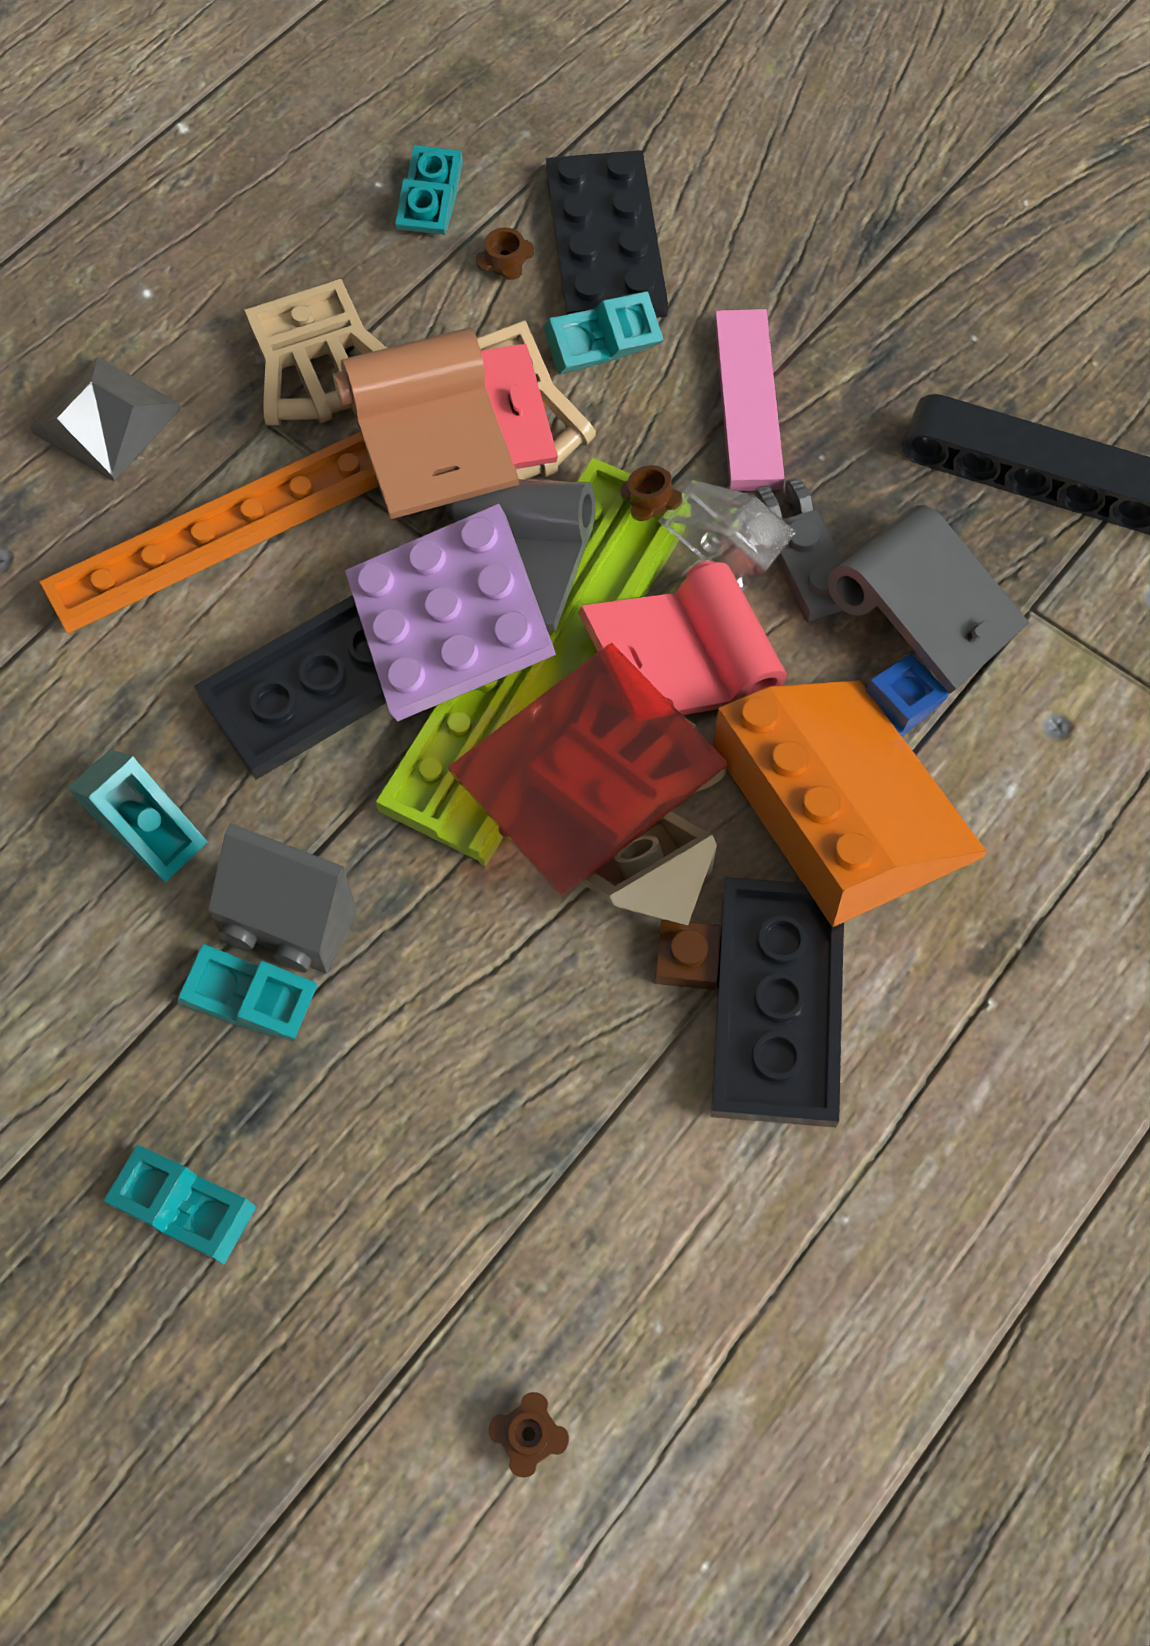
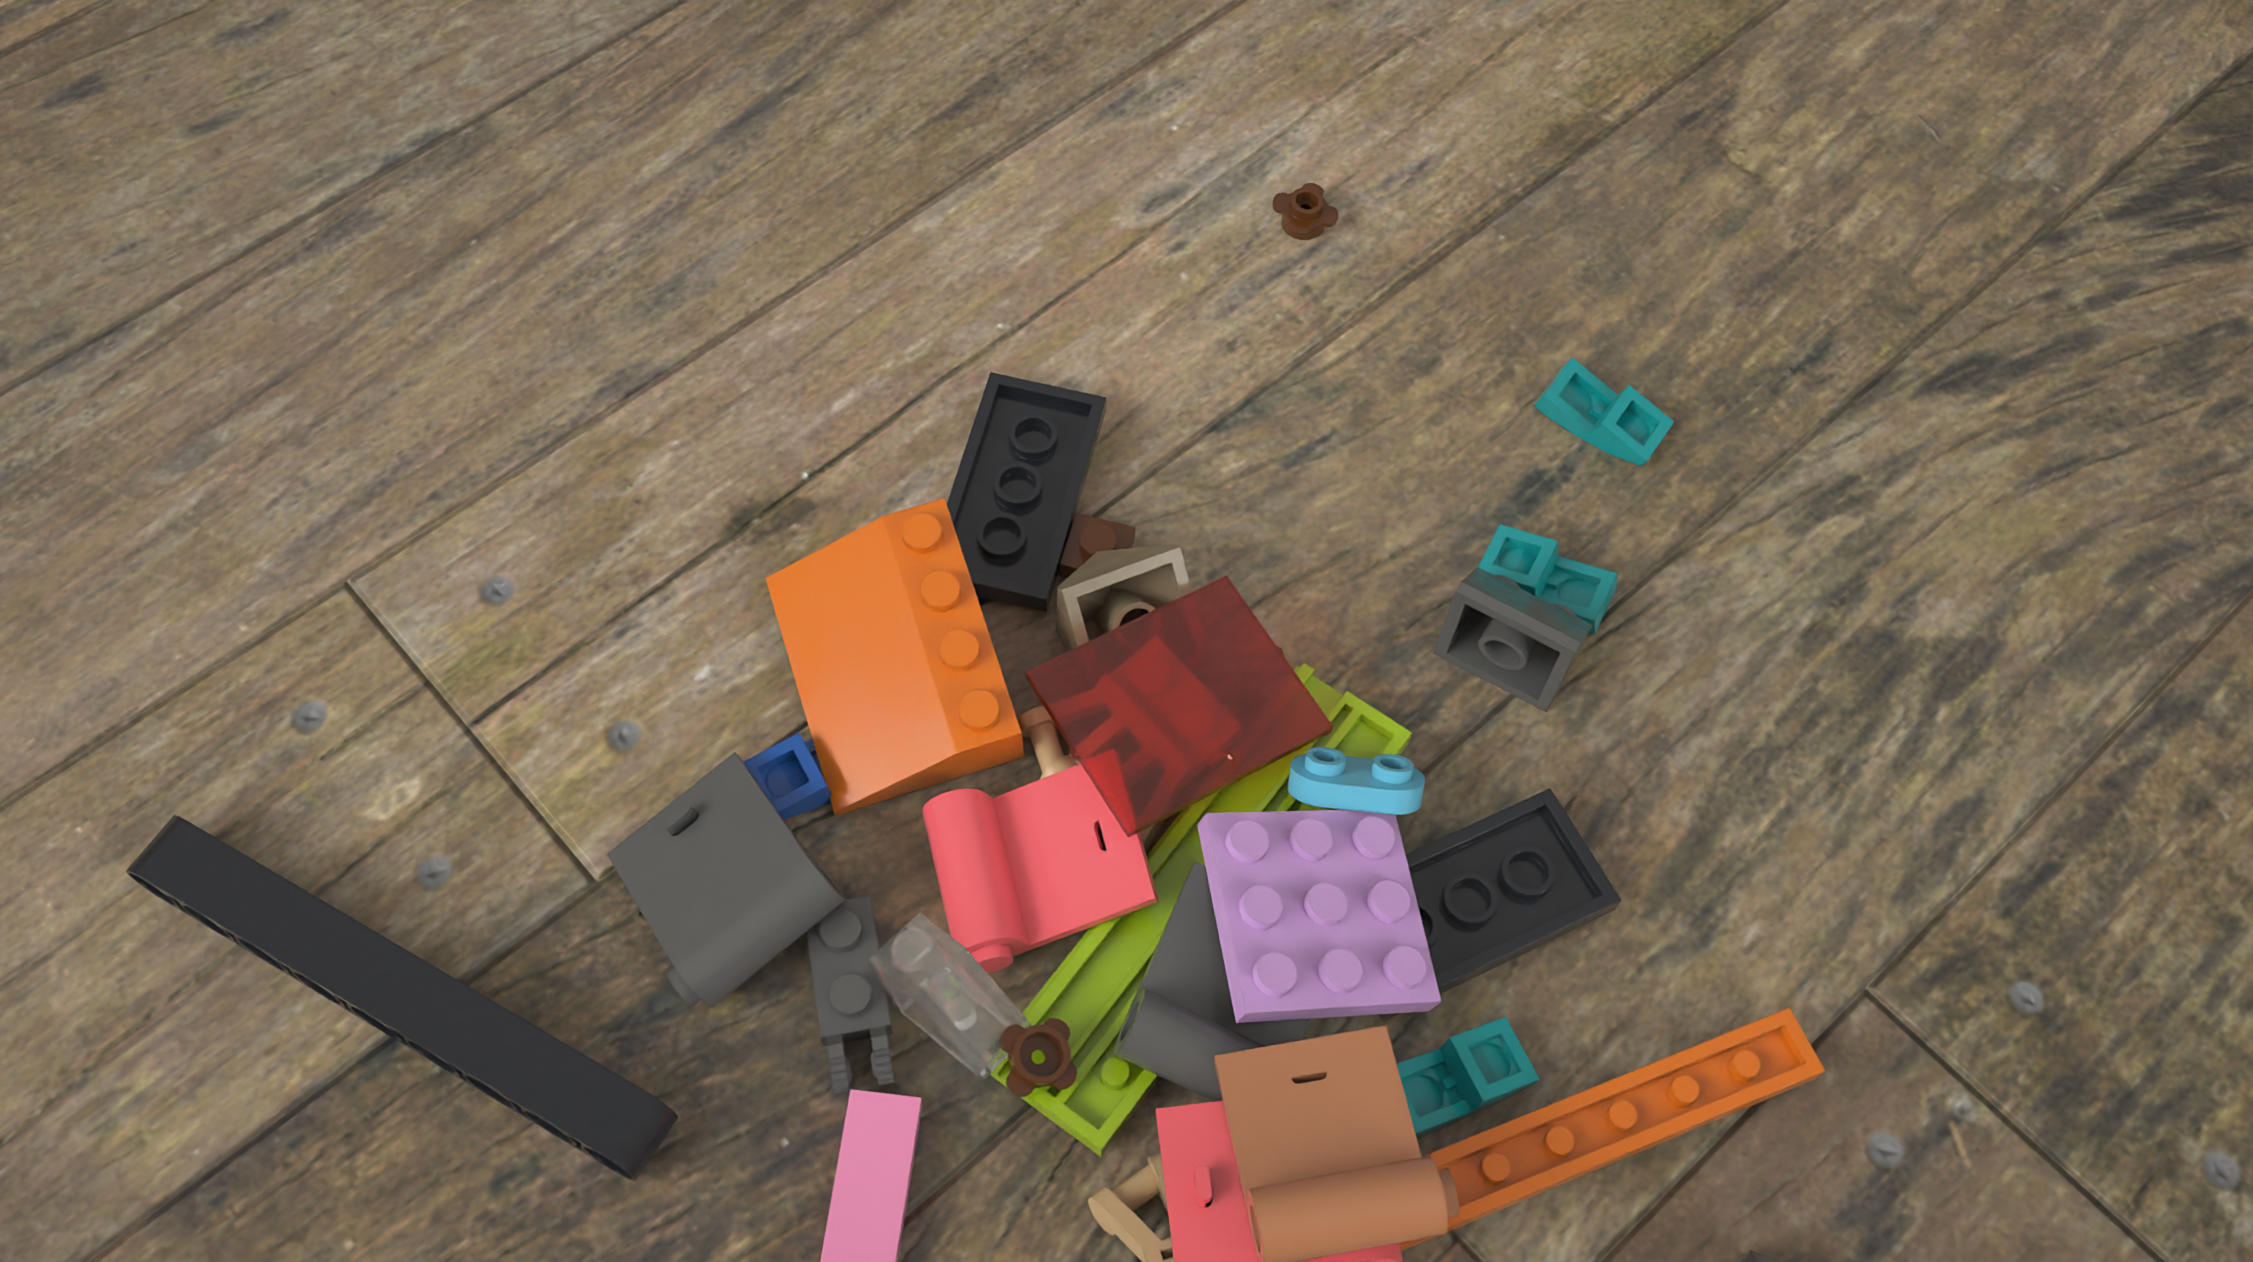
camera: 175 degrees left, 5 degrees down
(137, 813) = (1680, 765): teal slope -> none
(319, 559) = (1465, 1076): none -> teal slope
(422, 722) = (1356, 783): none -> medium azure plate

